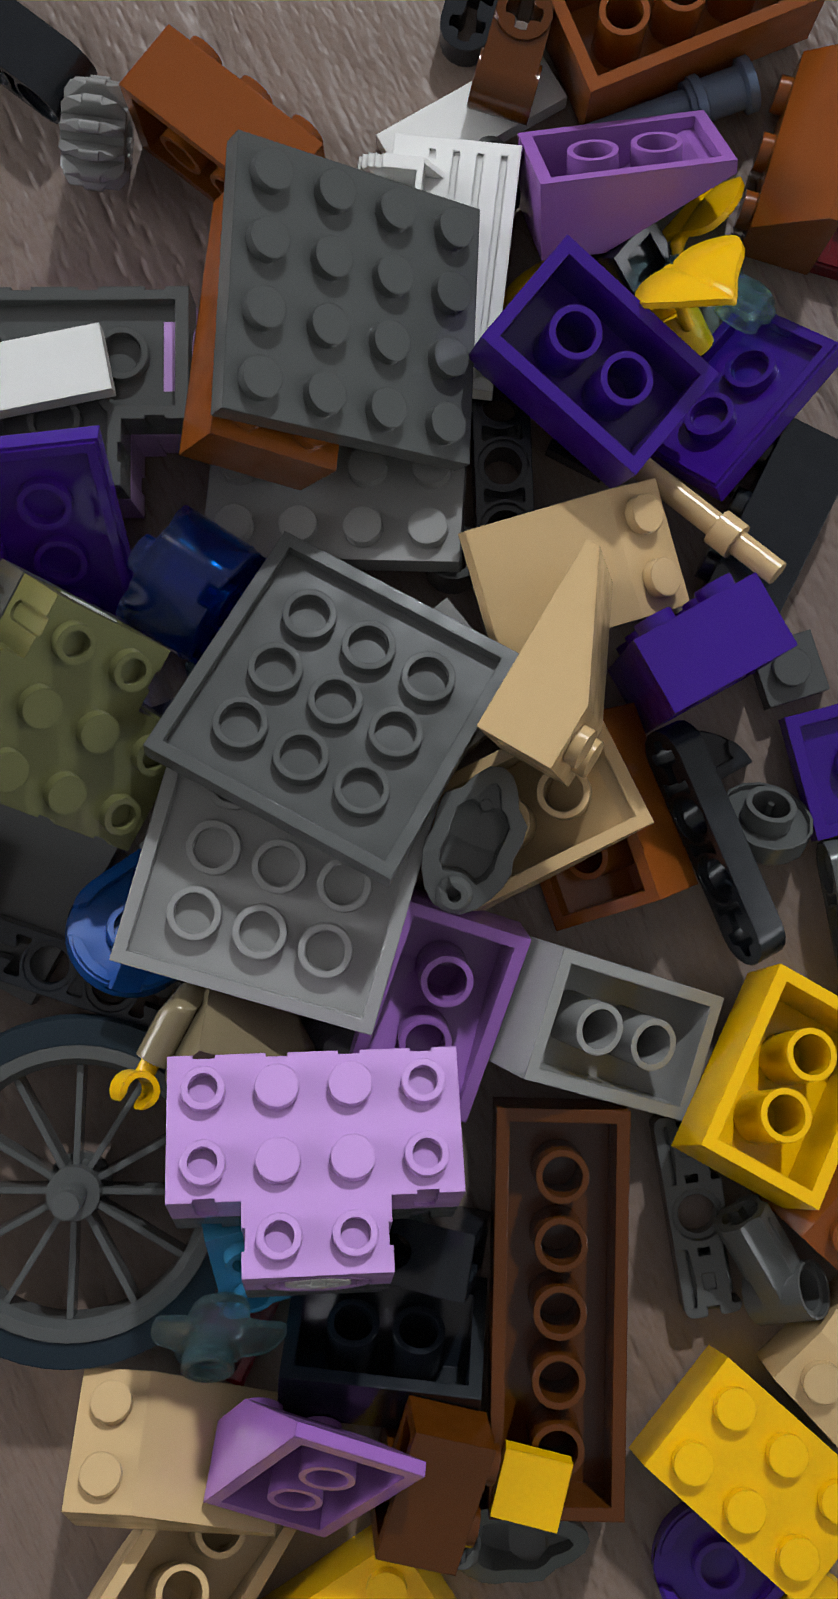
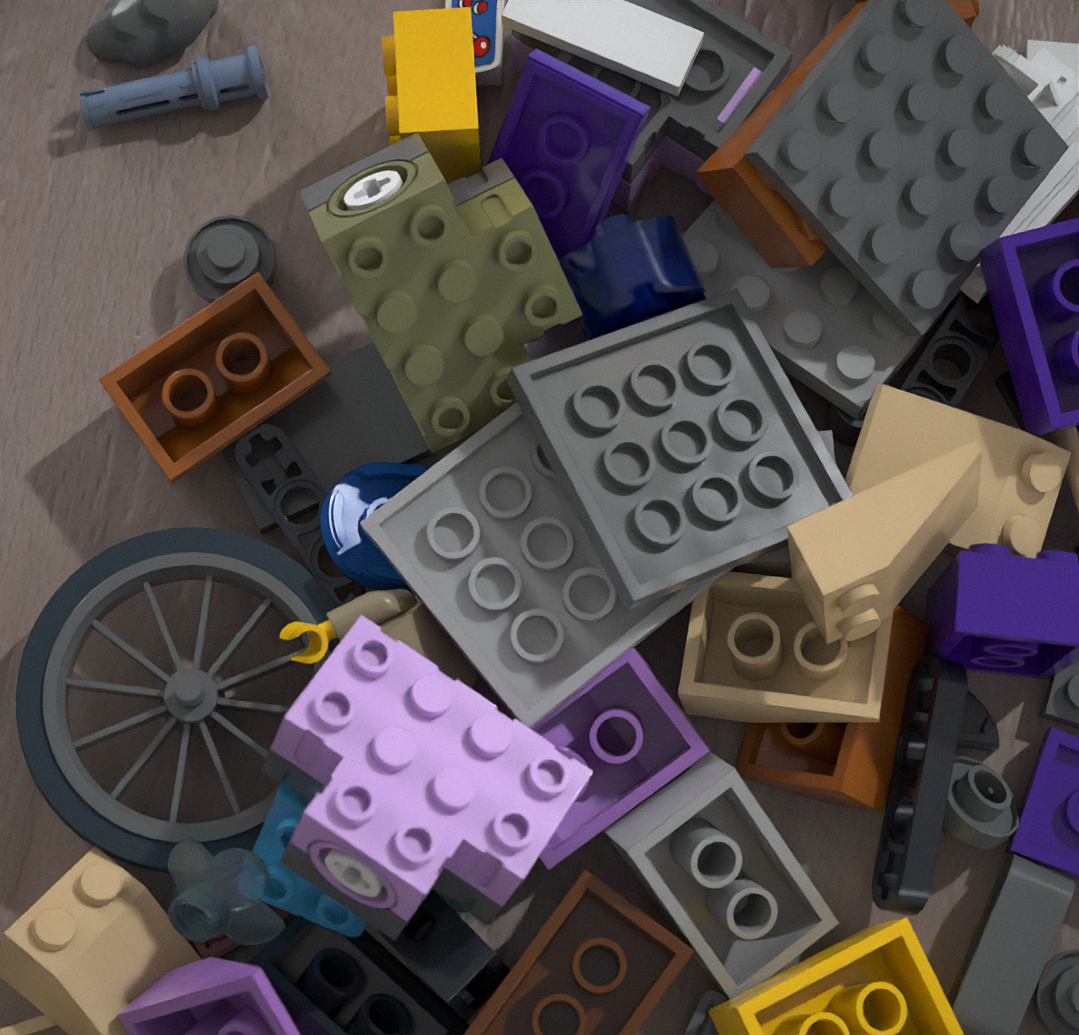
camera: 35 degrees right, 10 degrees down
(473, 842) = (718, 631): dark grey arm -> none

